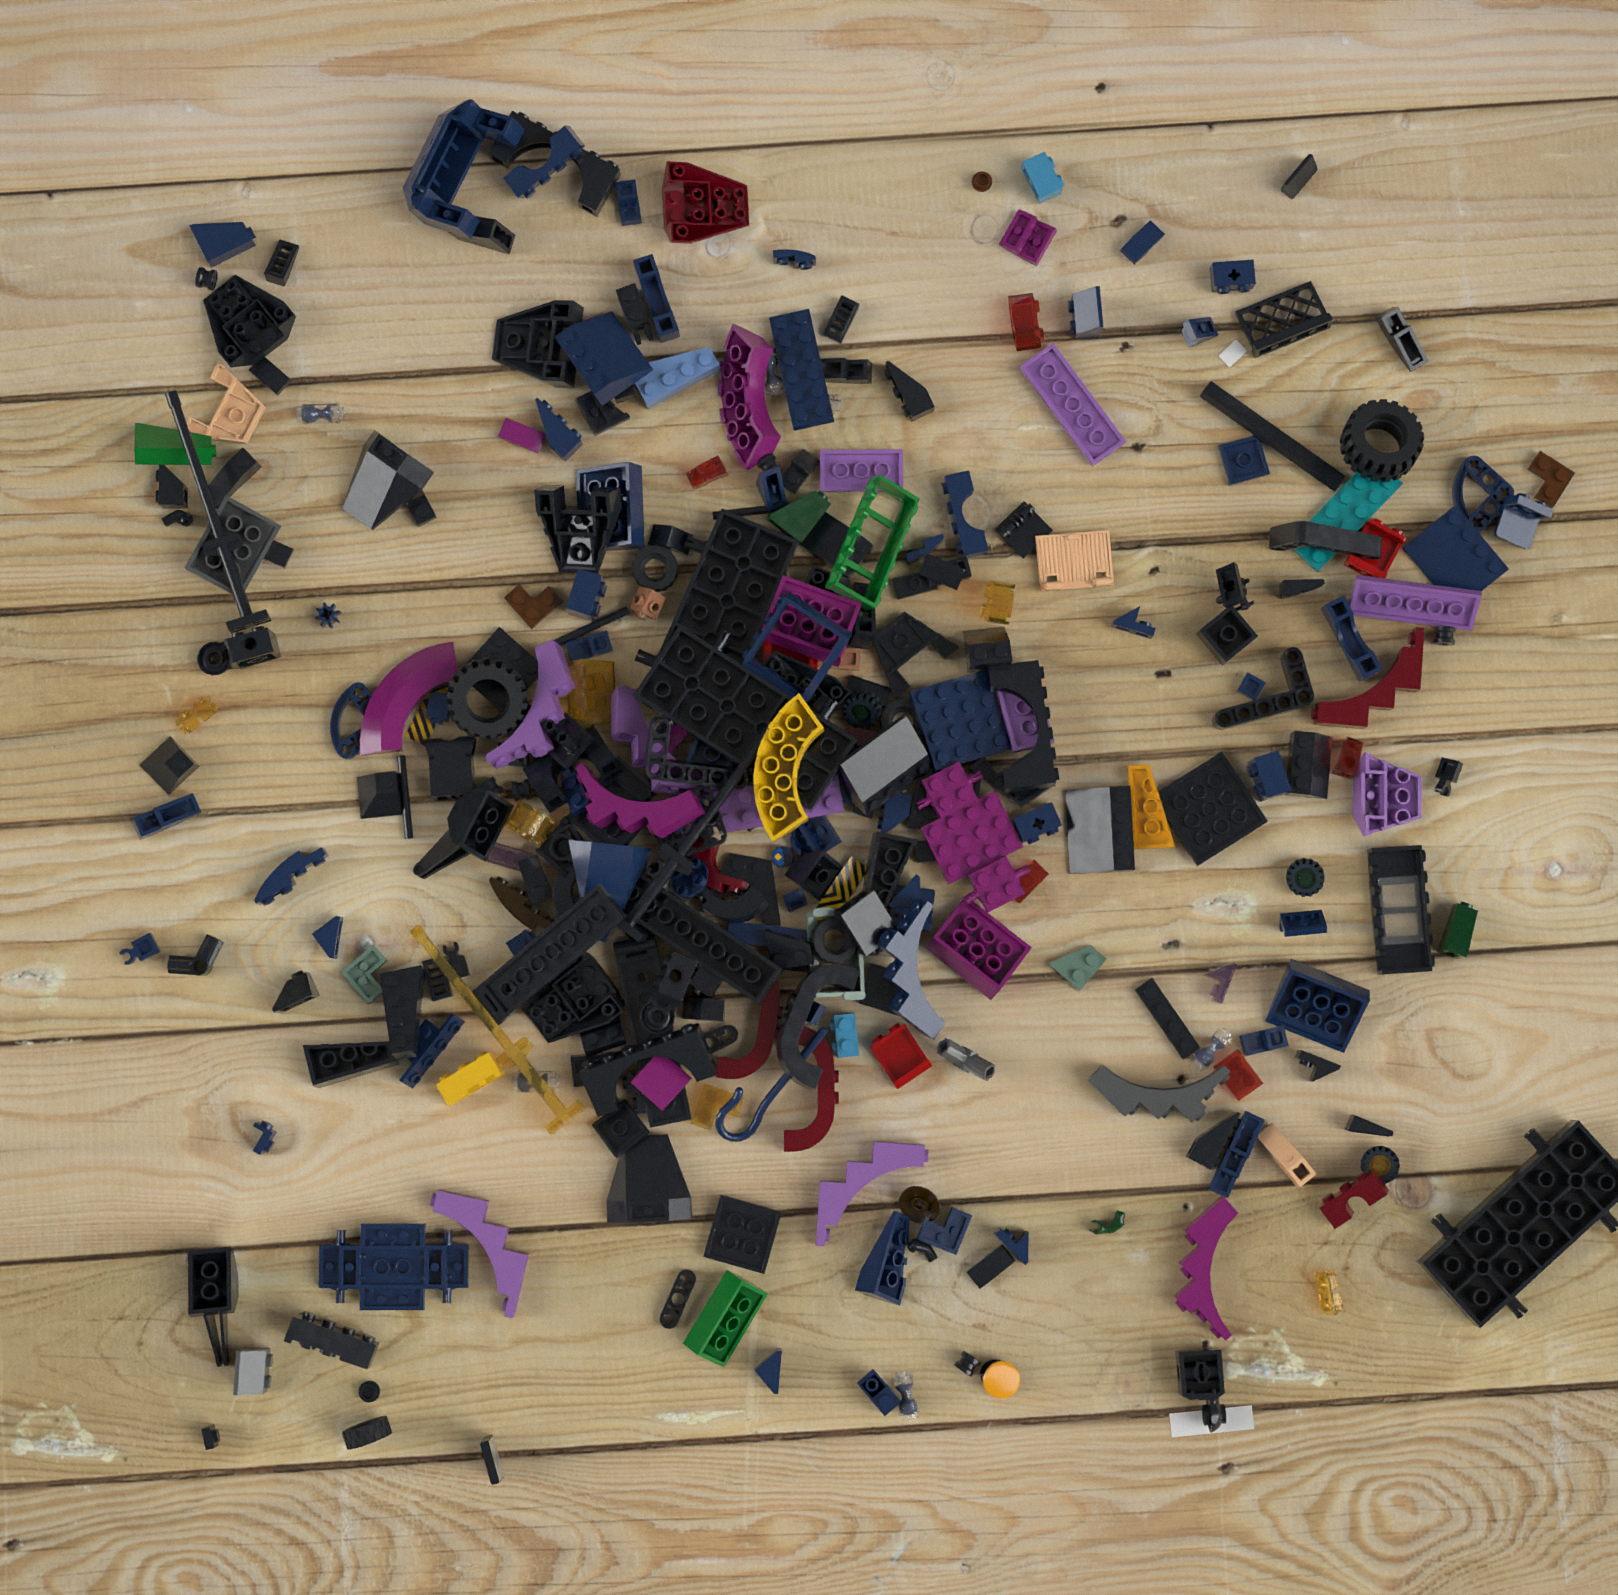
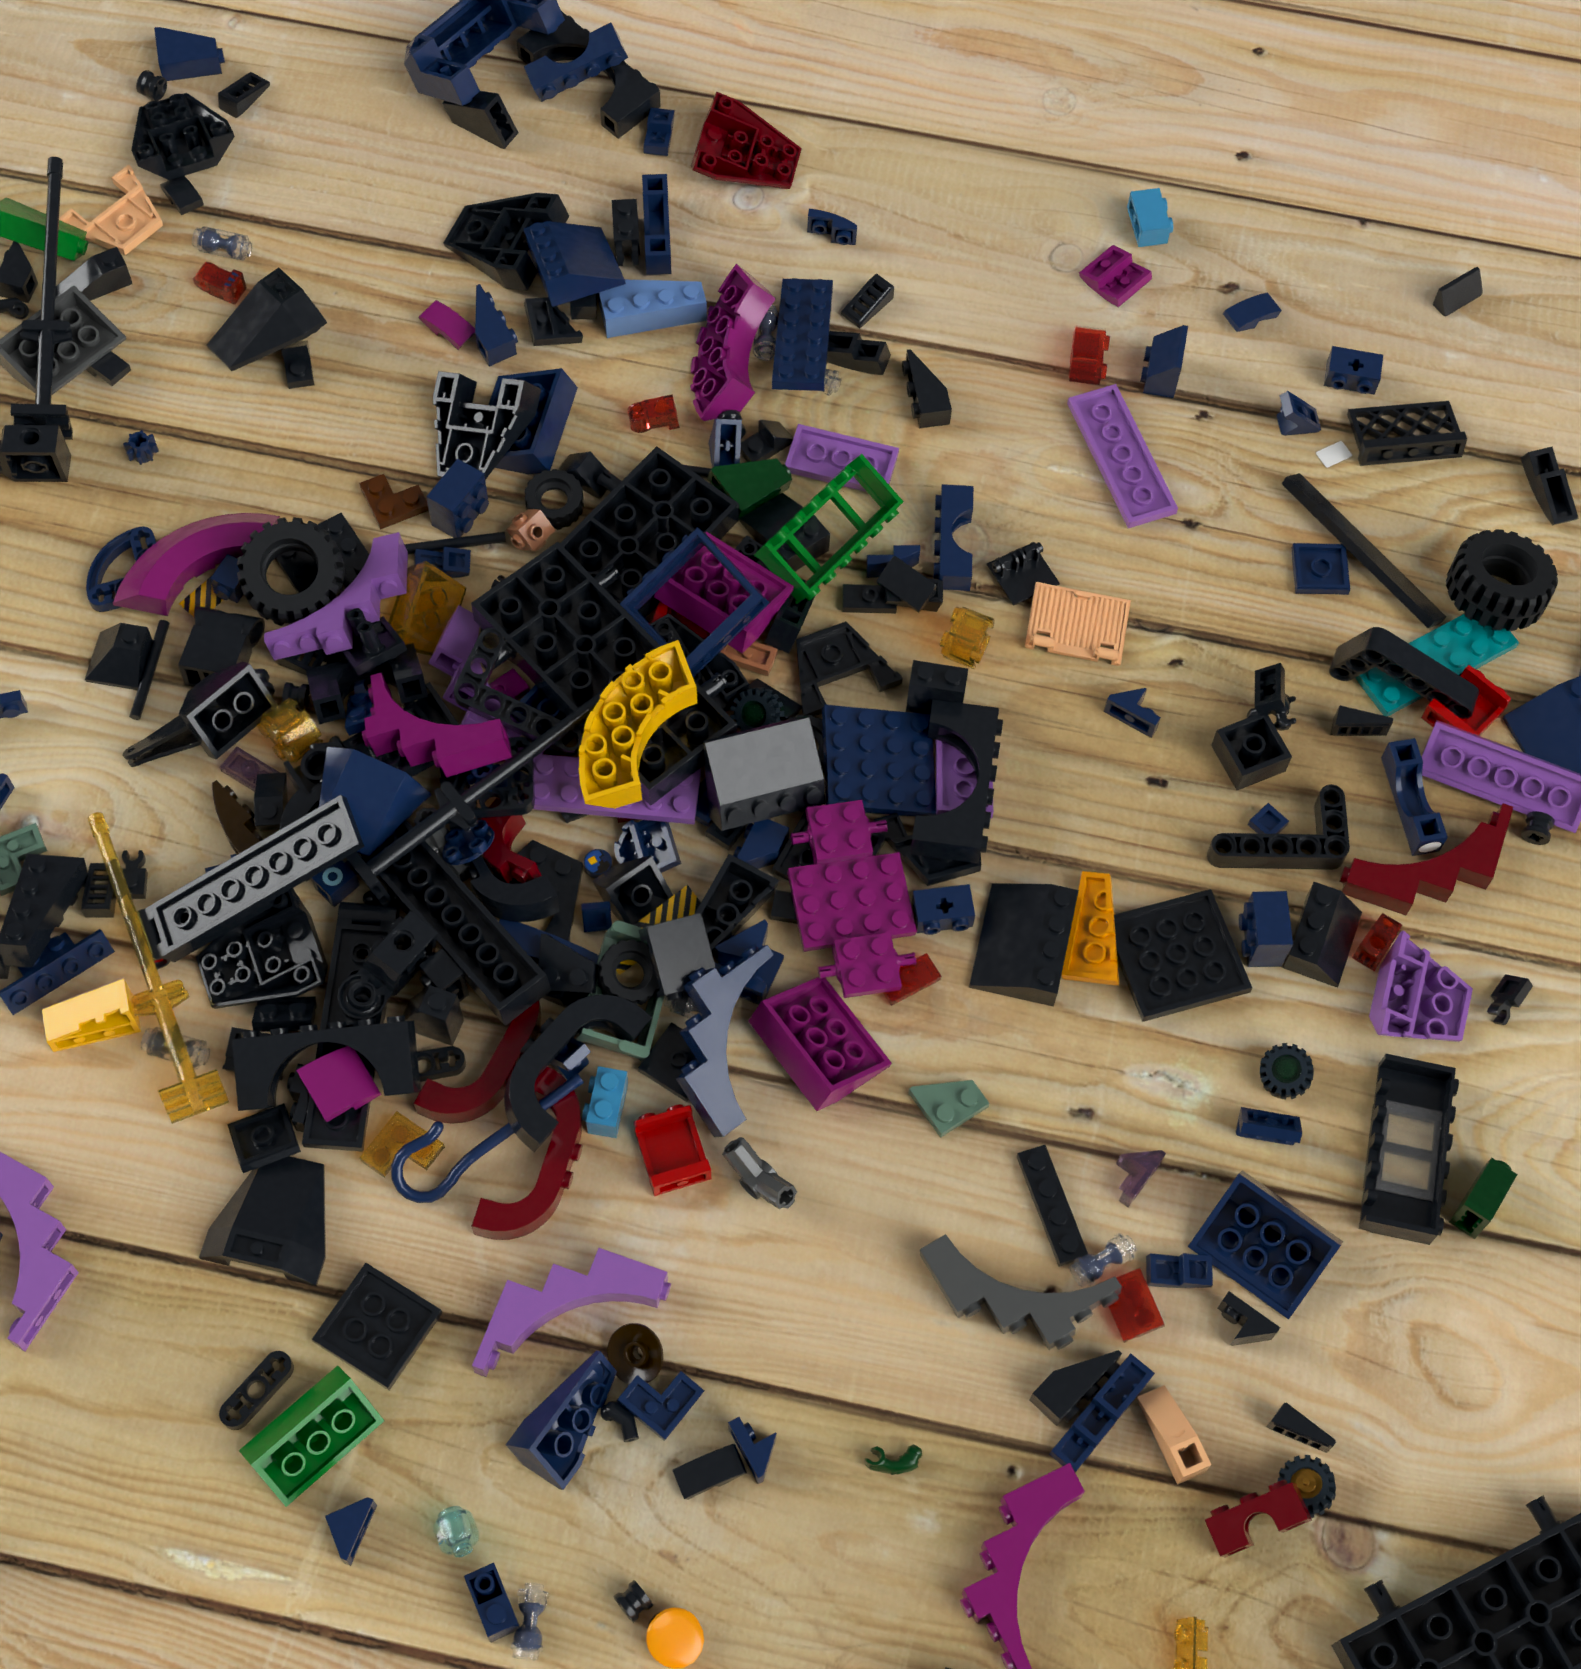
camera: 15 degrees right, 20 degrees down
(331, 449) = (220, 282): none -> clear red leg
(840, 1353) = (456, 1531): none -> clear light blue head
(982, 181) = (1077, 208): reddish brown plate -> none

